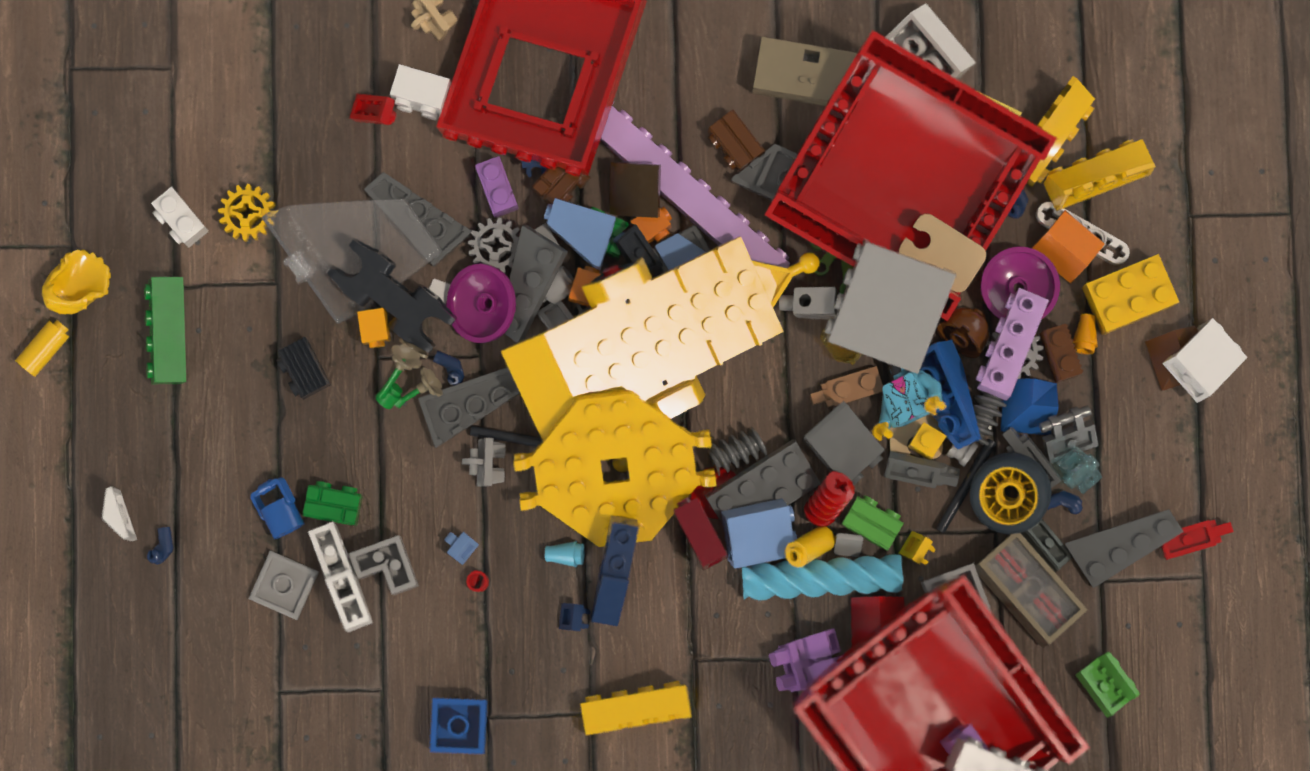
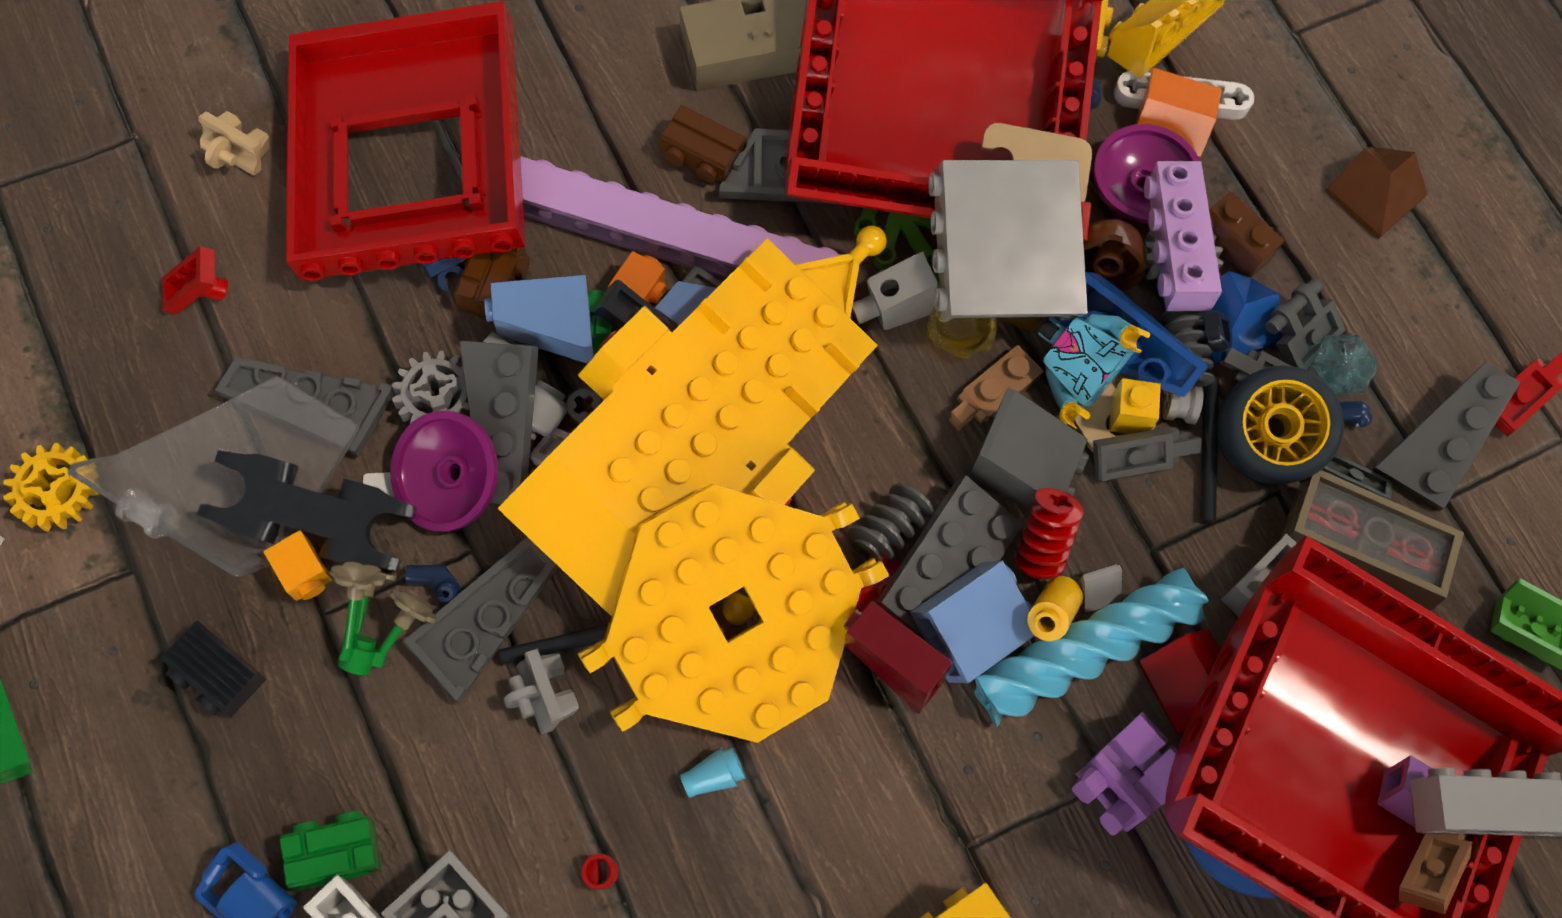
camera: 30 degrees left, 15 degrees down
(419, 91) = (245, 231): white piece -> none
(461, 547) = (553, 831): medium blue tile -> none
(496, 187) = (405, 316): medium lavender brick -> none
(571, 617) = (764, 862): dark blue tile -> none
(582, 278) = (578, 396): orange brick -> none
(614, 570) = (799, 764): dark blue brick -> none
(635, 189) = (597, 240): dark brown slope -> none
(872, 522) = (1110, 541): bright green brick -> none
(916, 548) = (1193, 552): yellow tile -> none
(1006, 414) = (1218, 331): none -> black tile
(1085, 335) = (1257, 200): light orange cone -> none
(1130, 294) = (1282, 136): yellow brick -> none
(1205, 361) = (1421, 172): white panel -> none

